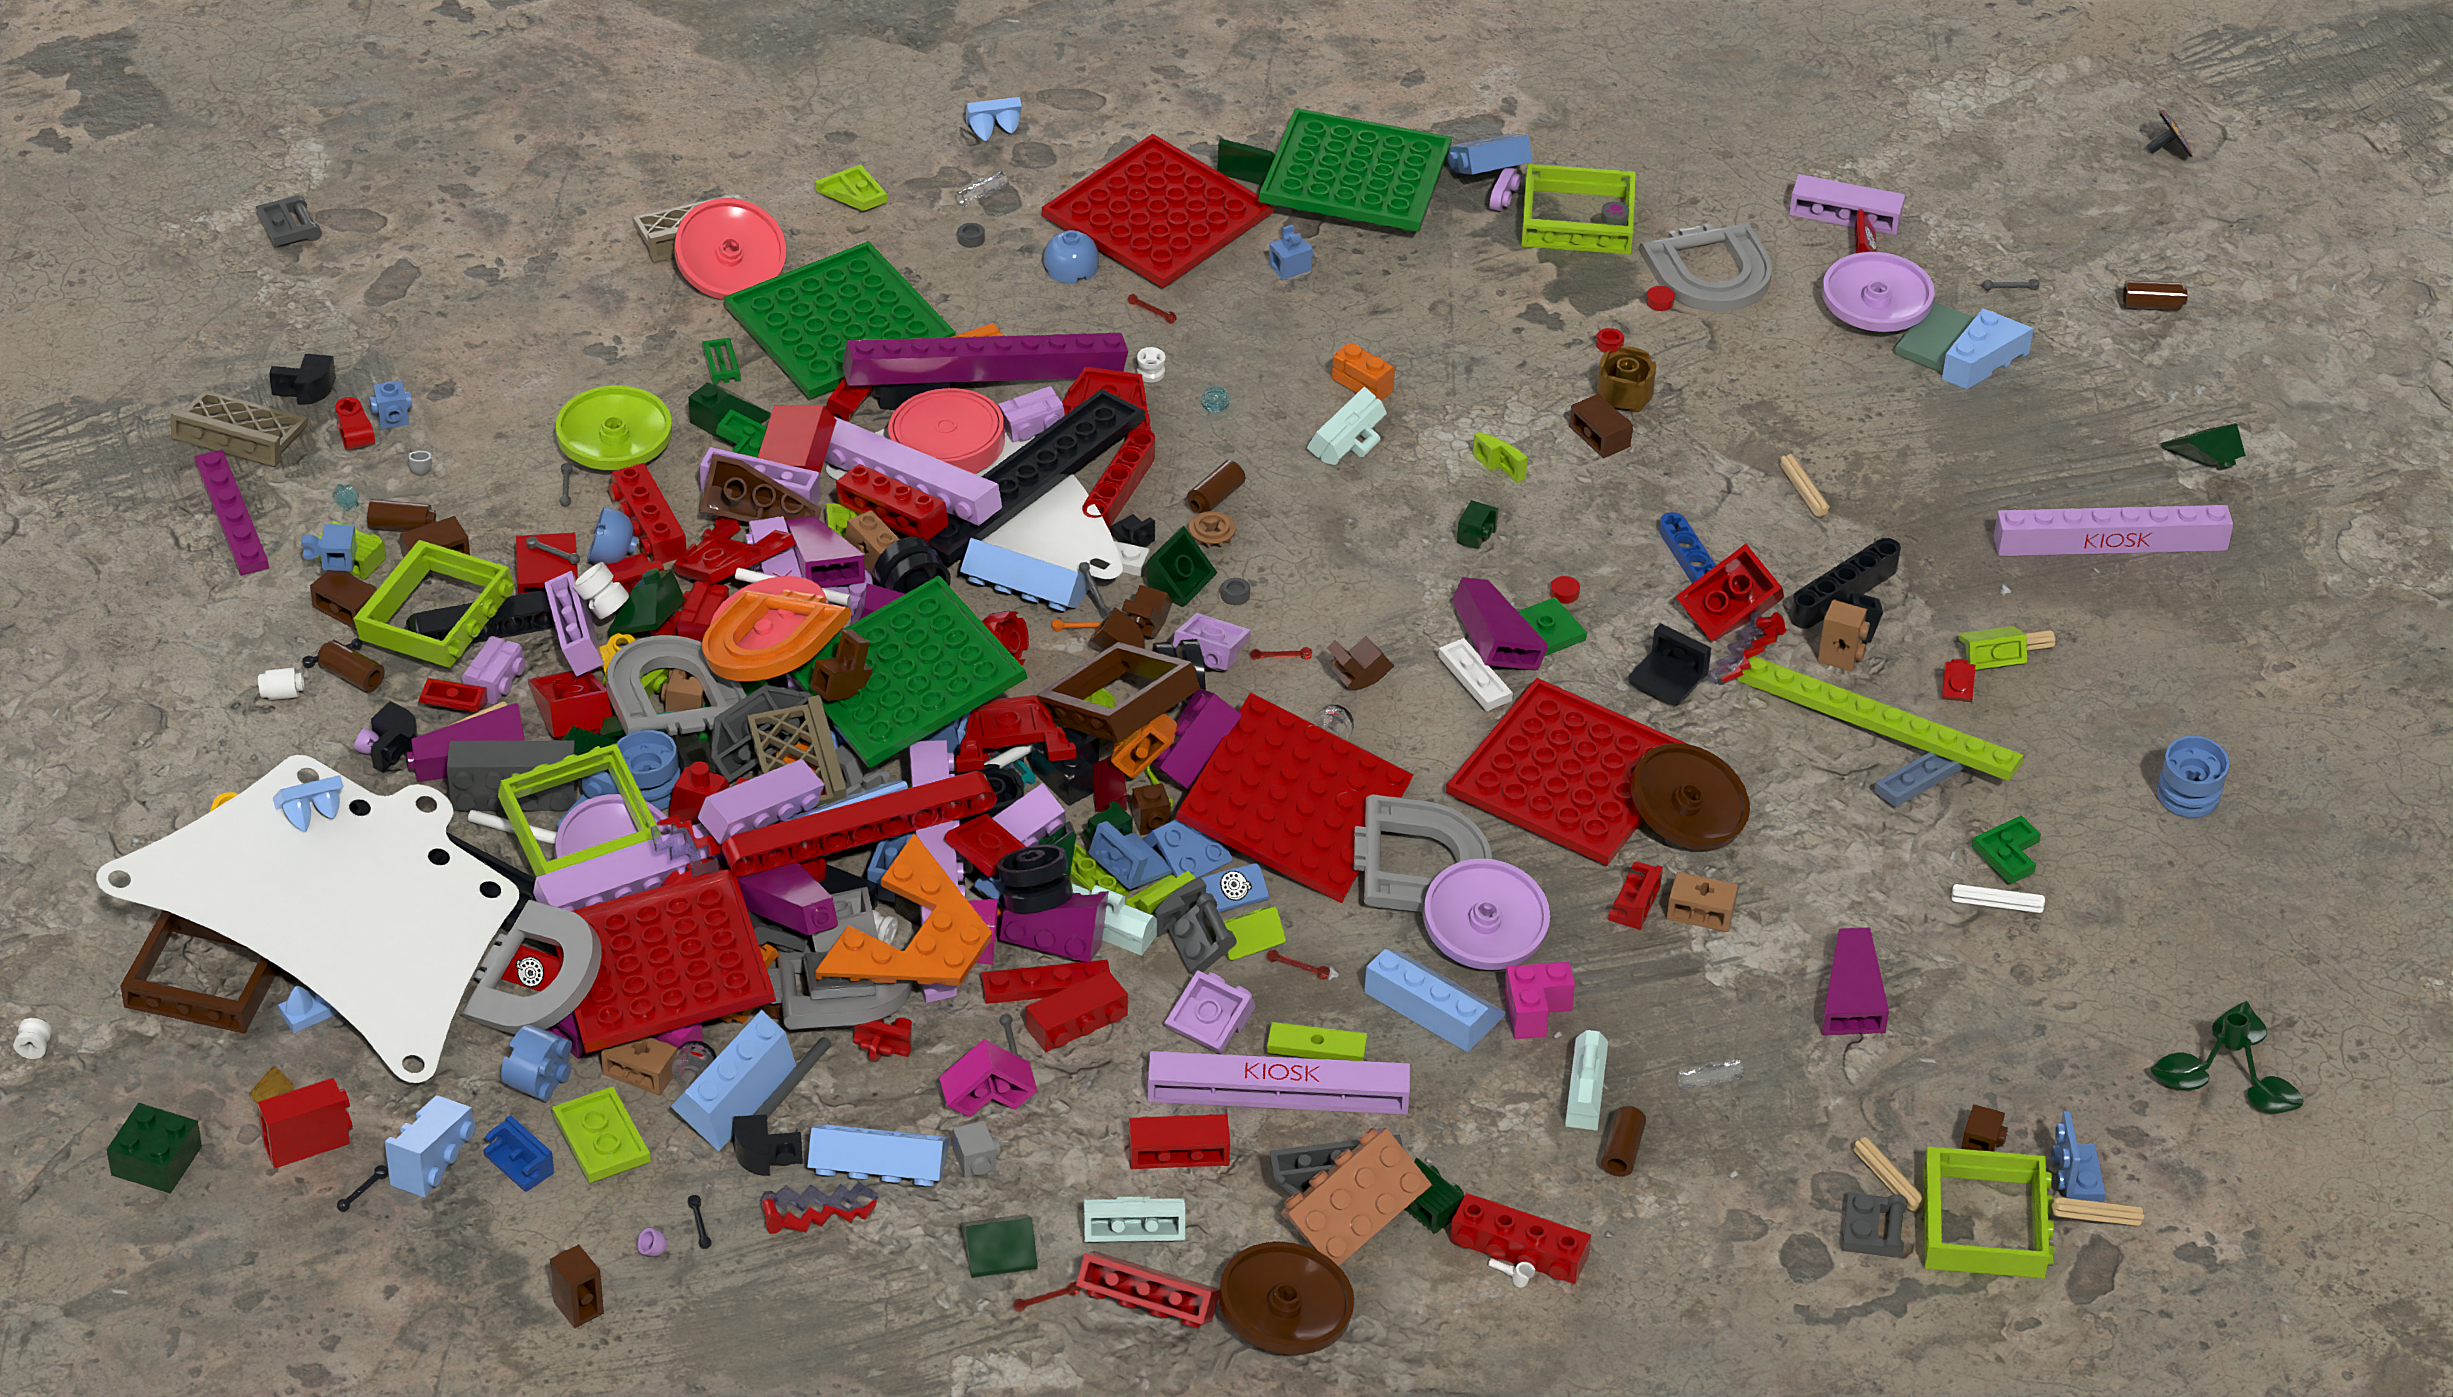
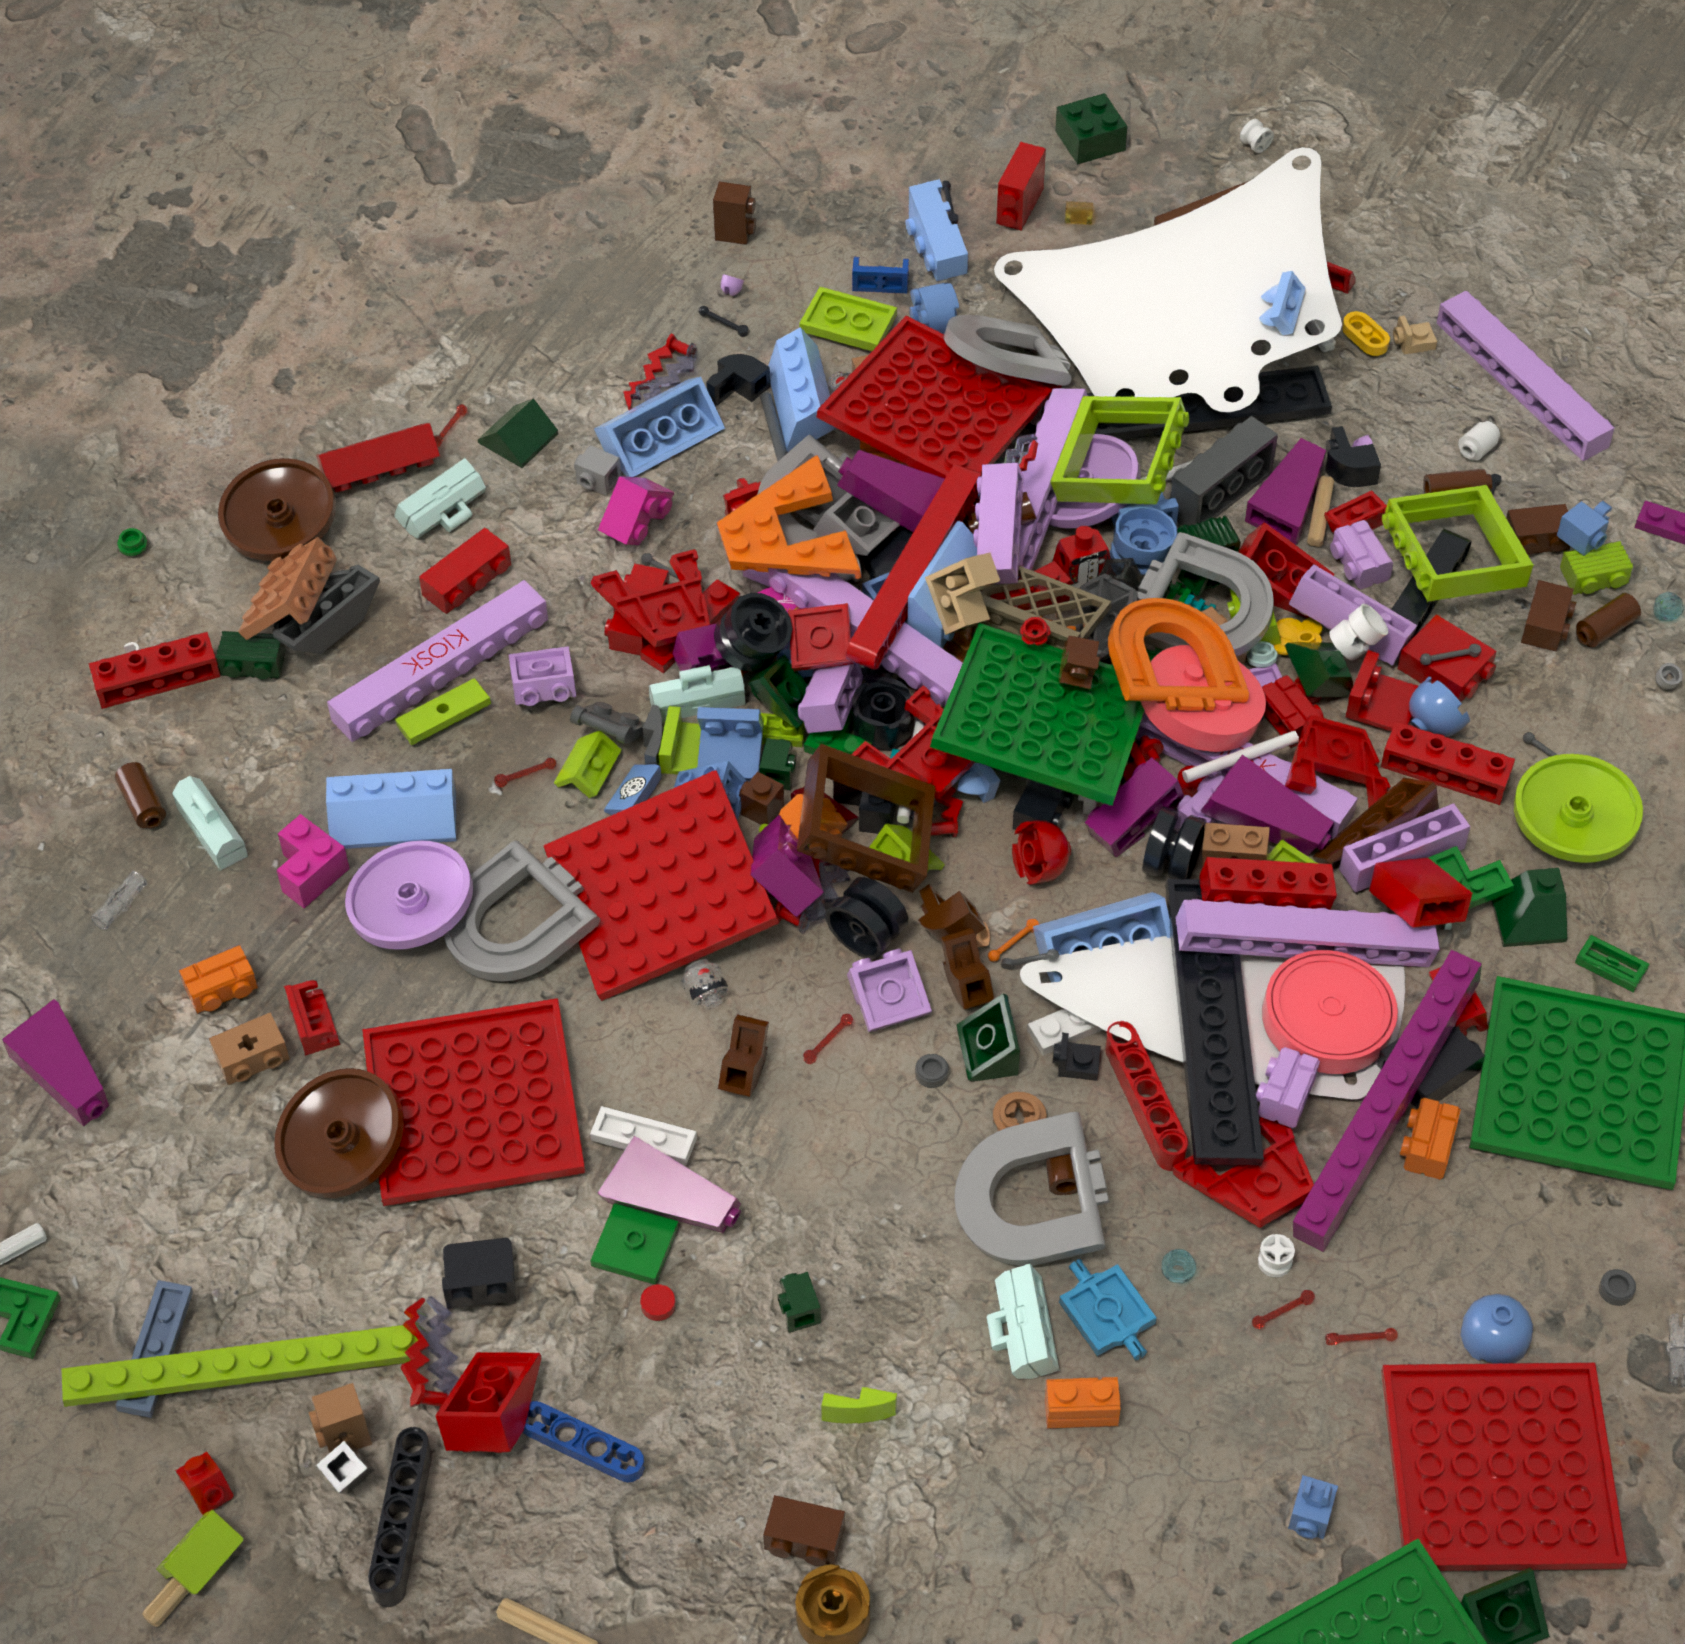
camera: 140 degrees right, 10 degrees up
(167, 703) = (1525, 376): none -> lavender brick
(191, 793) = (1414, 337): none -> tan bracket
(838, 719) = (1035, 624): none -> red plate
(856, 764) = (958, 593): none -> tan brick
(1063, 965) = (663, 610): none -> red wing
(1202, 350) = (1306, 1297): none -> clear red hinge
(1246, 496) = (1039, 1241): none -> light grey piece
(1288, 405) = (1107, 1310): none -> dark azure plate
(1434, 1379) = (132, 542): none -> green plate
(1683, 963) = (218, 979): none -> orange brick

